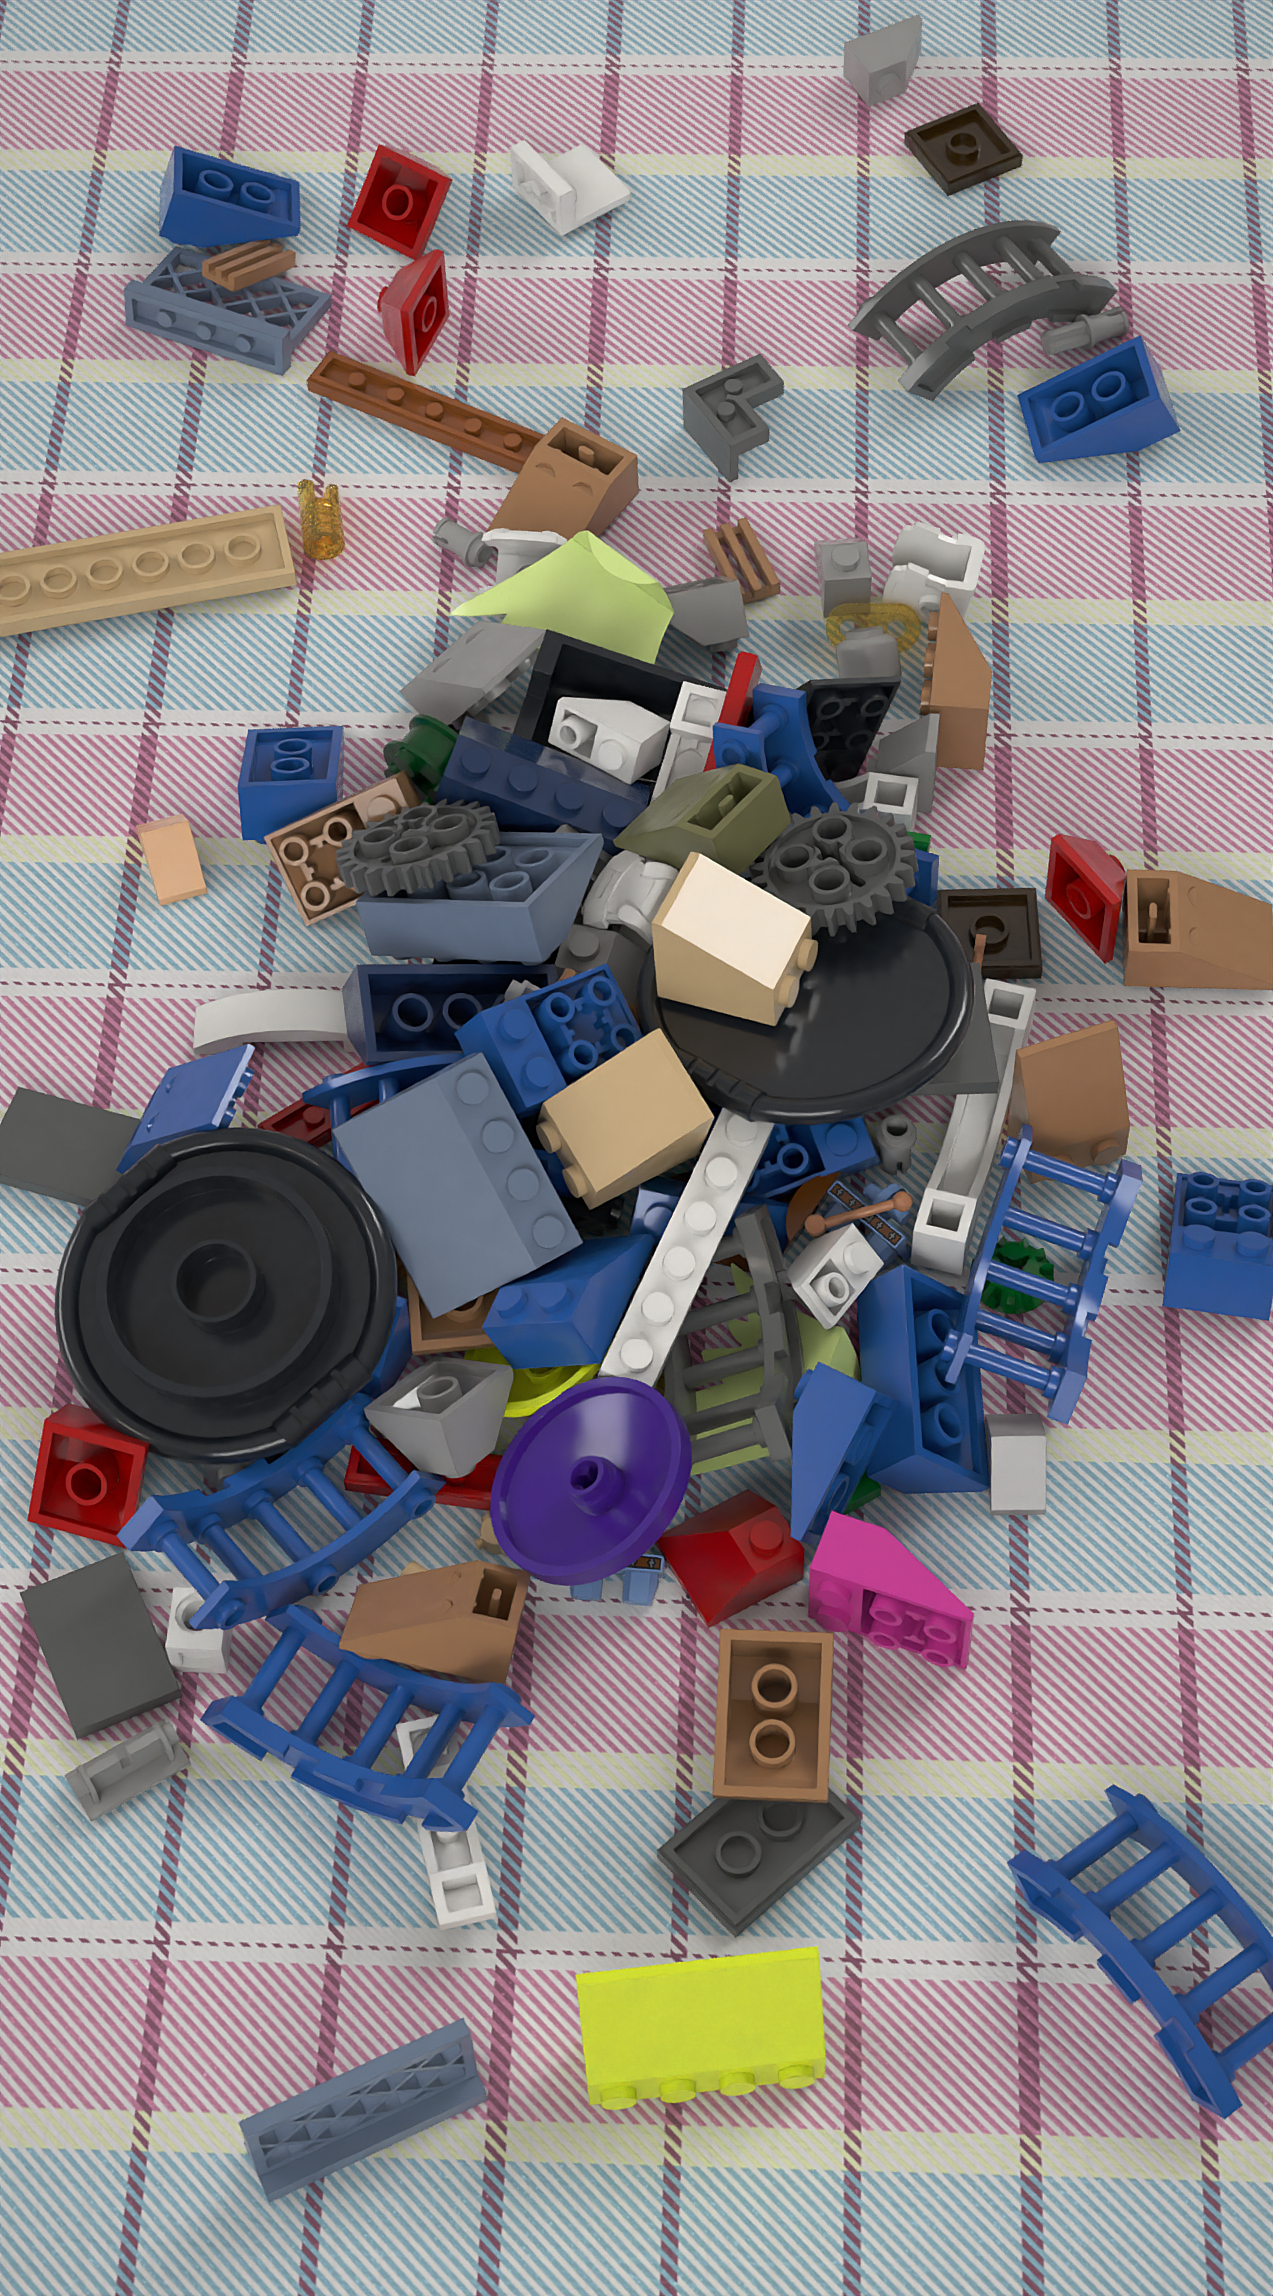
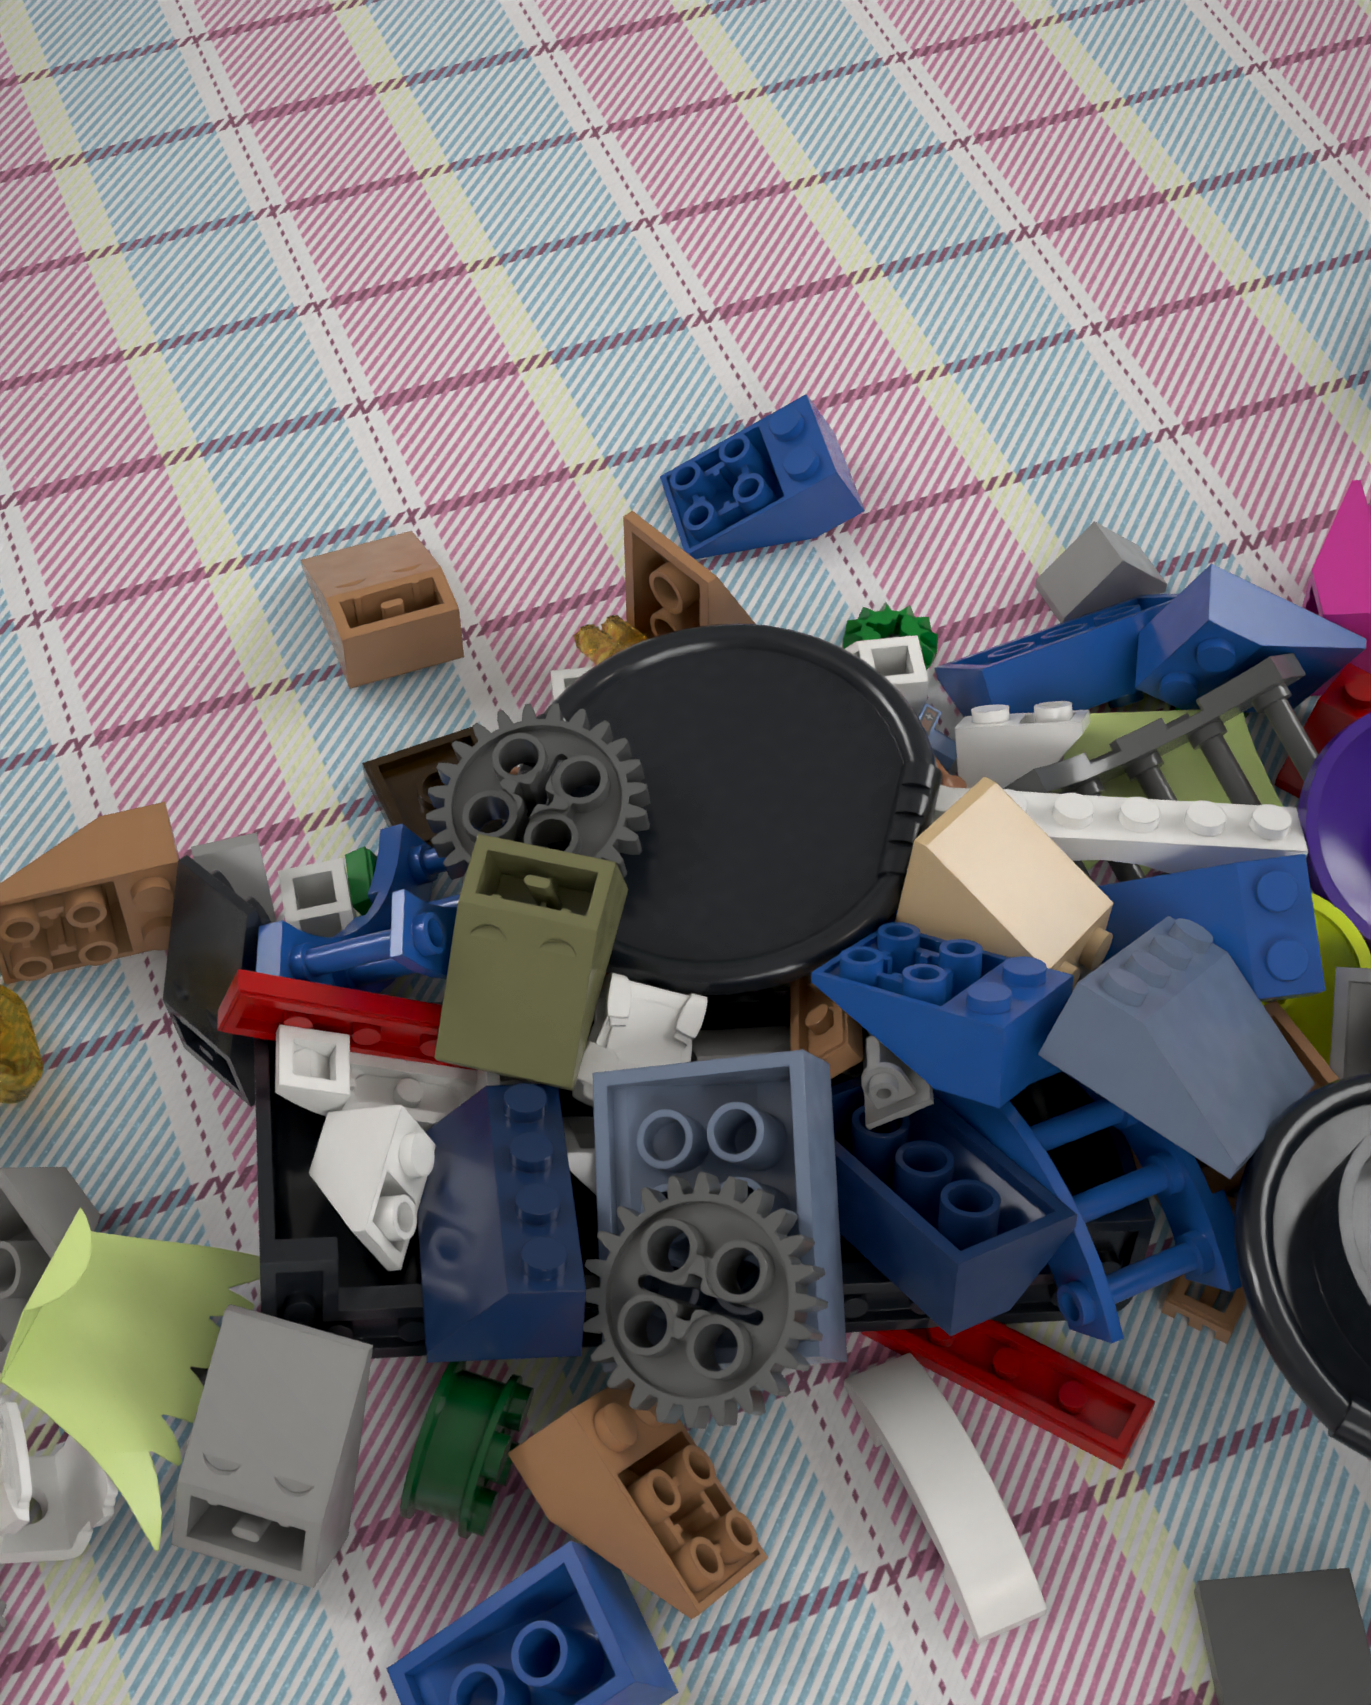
camera: 115 degrees left, 5 degrees down
(191, 1100) = (1219, 1479): blue slope -> none
(729, 944) = (730, 848): slope -> none
(868, 654) = (68, 1016): light grey head -> none
(1079, 1301) = (824, 568): blue fence -> none
(1086, 891) = (368, 689): red slope -> none

